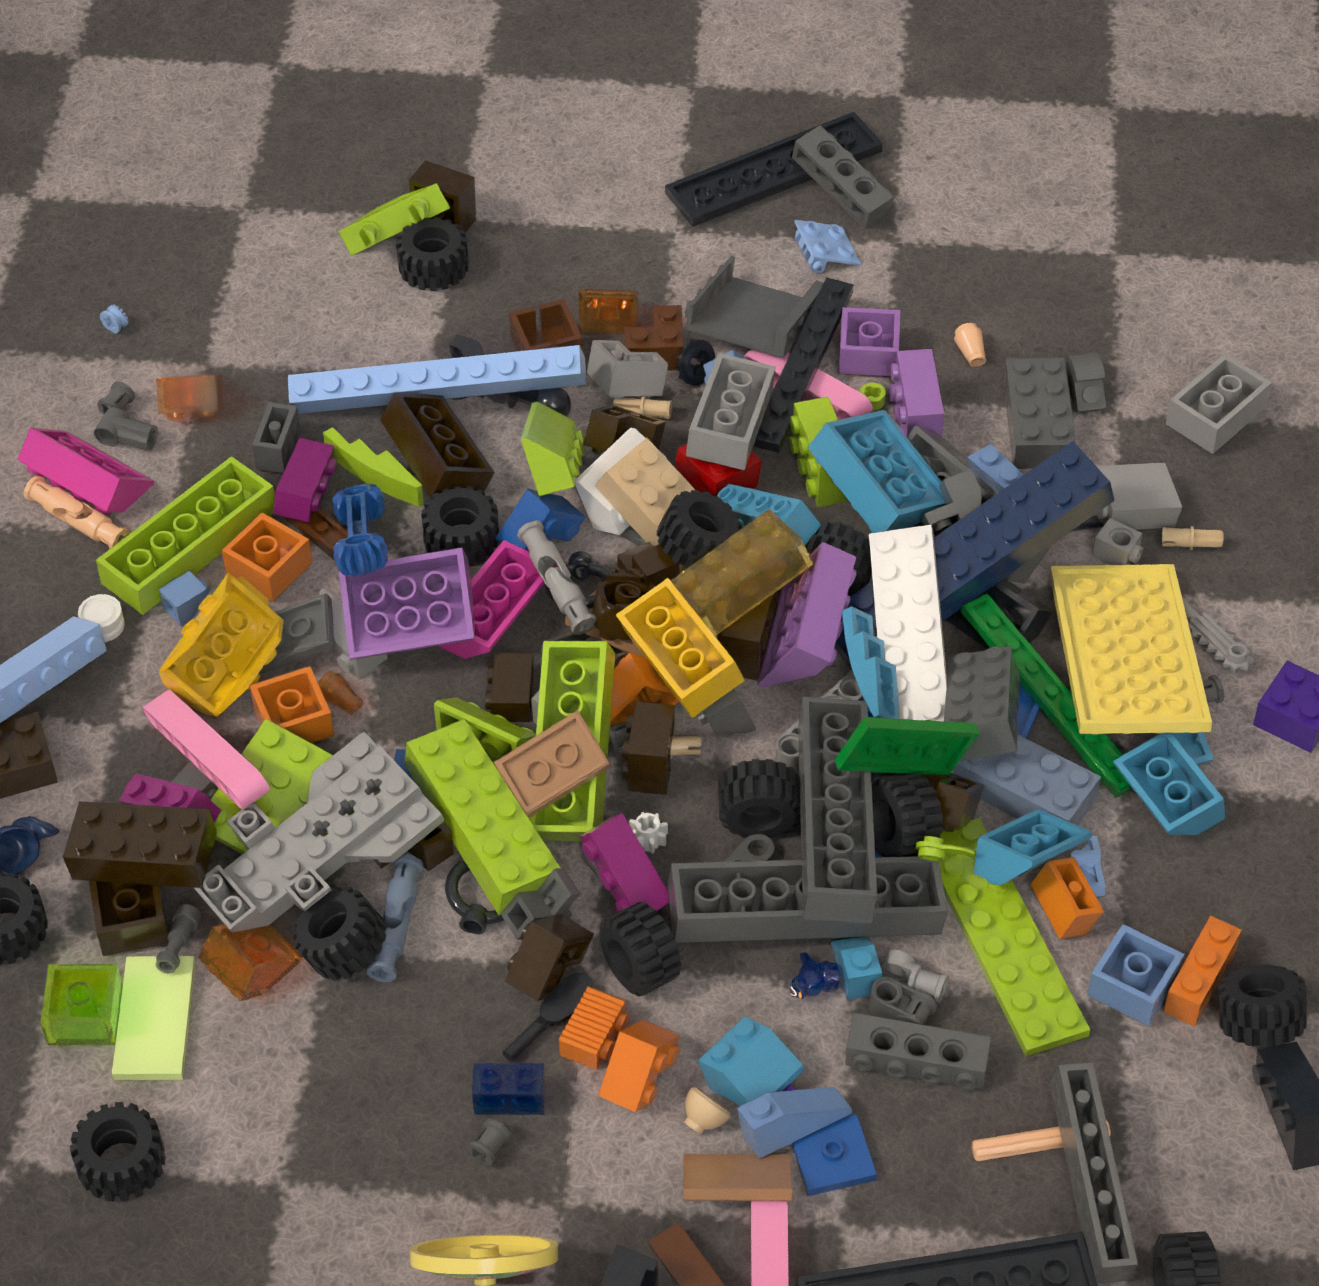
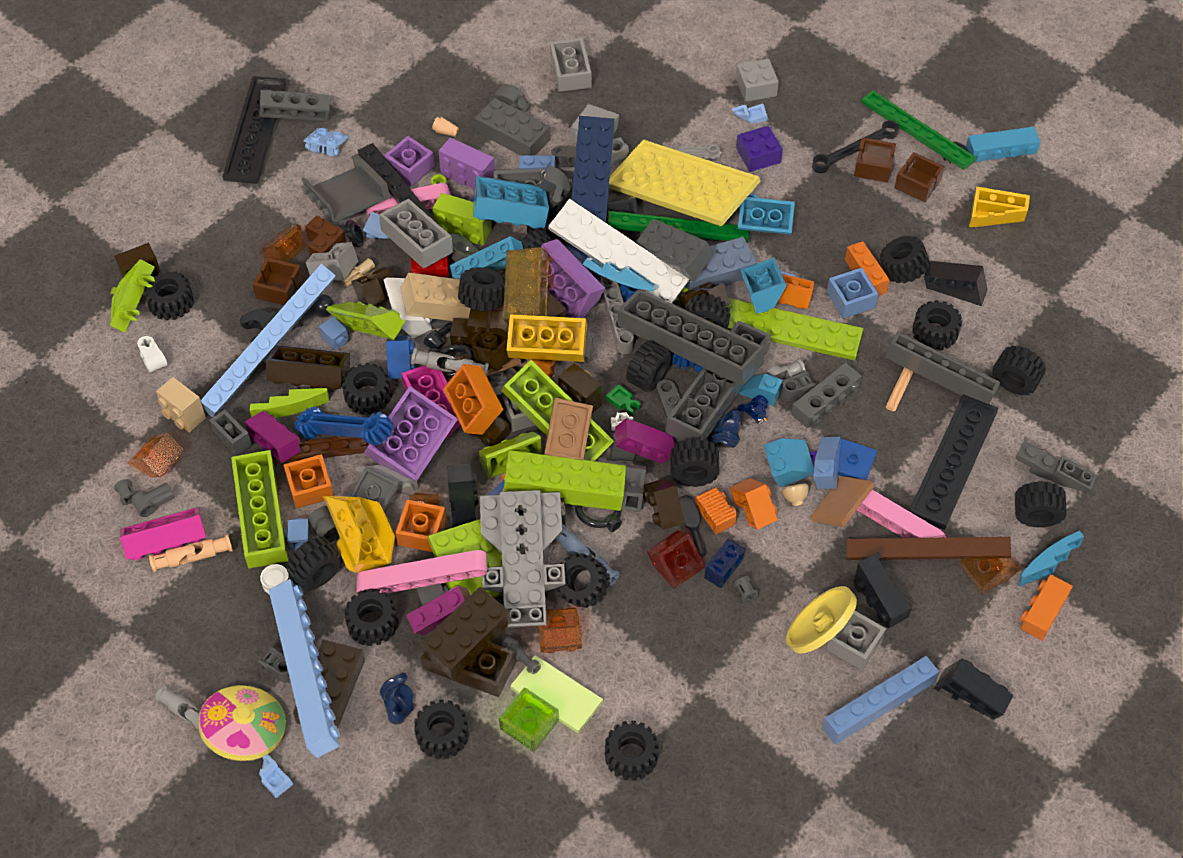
camera: 55 degrees left, 5 degrees up
(108, 725) = (374, 631): none -> black tyre
(114, 319) = (64, 461): light blue bush -> none
(139, 633) = (314, 563): none -> black tyre
(271, 363) = (180, 405): none -> tan brick
(332, 295) = (151, 354): none -> white piece
(366, 706) = (462, 493): none -> black wedge
(471, 1026) = (676, 558): none -> clear red slope
(512, 446) = (334, 333): none -> medium blue brick
(514, 632) = (473, 399): none -> orange brick
(605, 547) = (434, 338): none -> black bar
(691, 809) = (622, 398): none -> green plate
(744, 962) = (727, 429): none -> dark blue hair
(779, 475) = (461, 247): none -> dark grey piece
(906, 746) = (688, 286): green plate -> none
(935, 850) = (739, 316): lime plate -> none
(1175, 1145) = (941, 314): none -> black tyre
(1191, 537) = (632, 125): tan axle -> none

